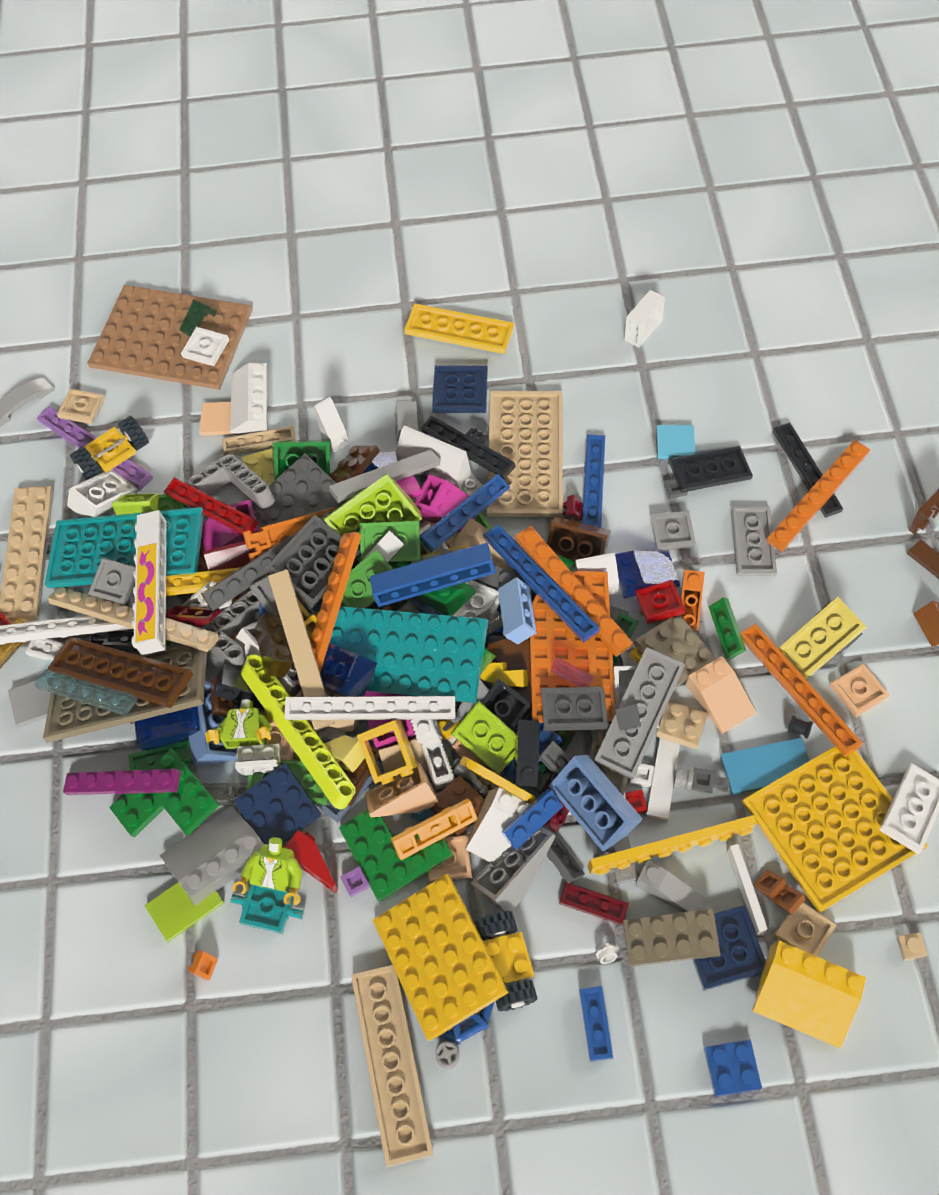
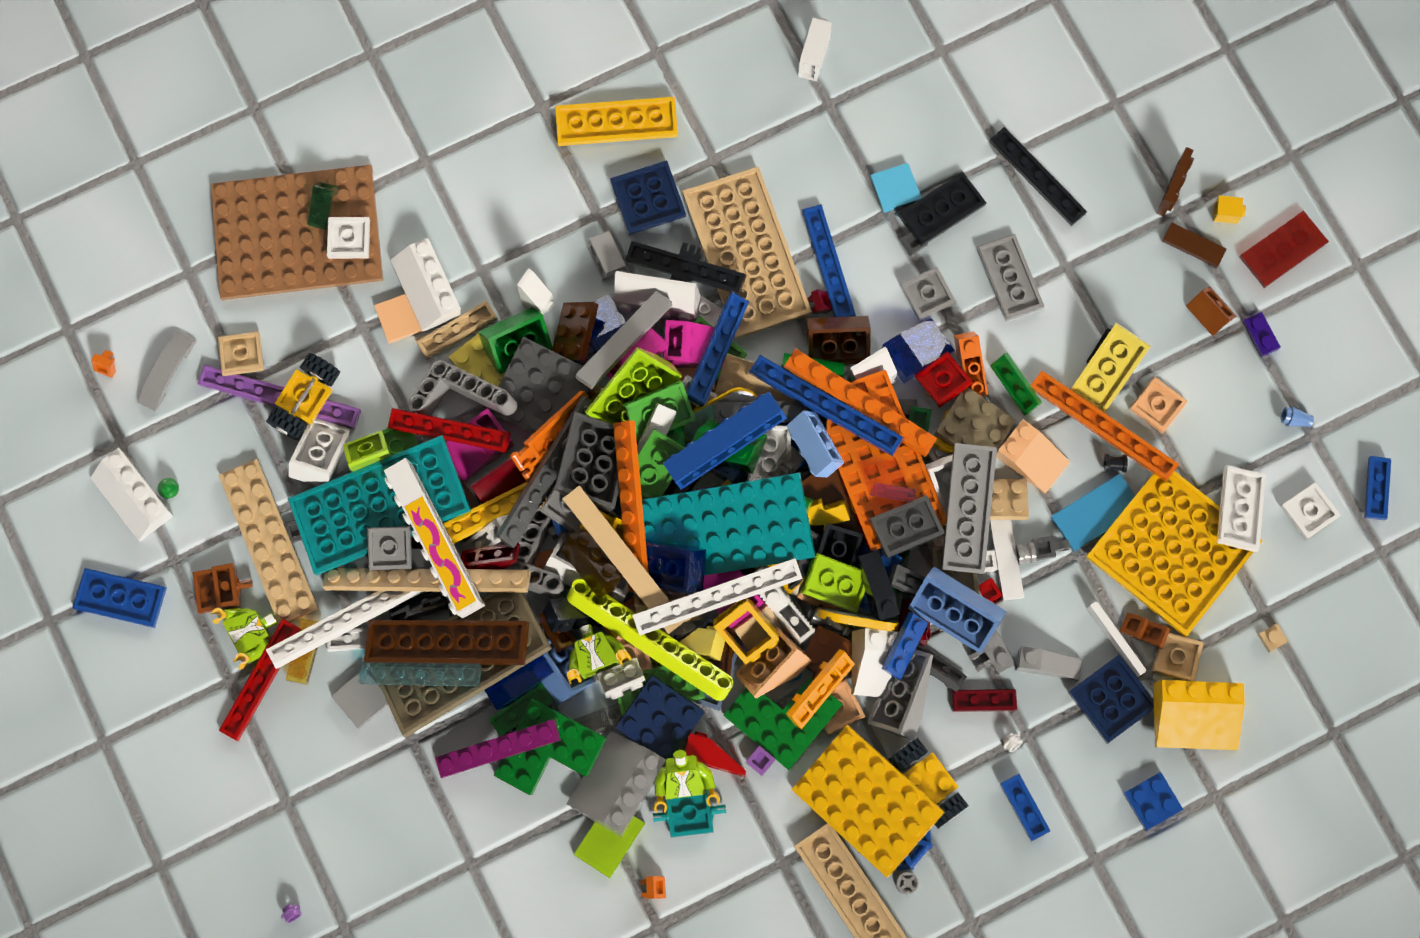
camera: 25 degrees left, 15 degrees up
(627, 718) = (961, 519): dark grey tile -> none
(664, 847) = (1031, 629): yellow plate -> none
(671, 938) = (1065, 708): dark tan plate -> none
(818, 496) = (1059, 206): orange plate -> none

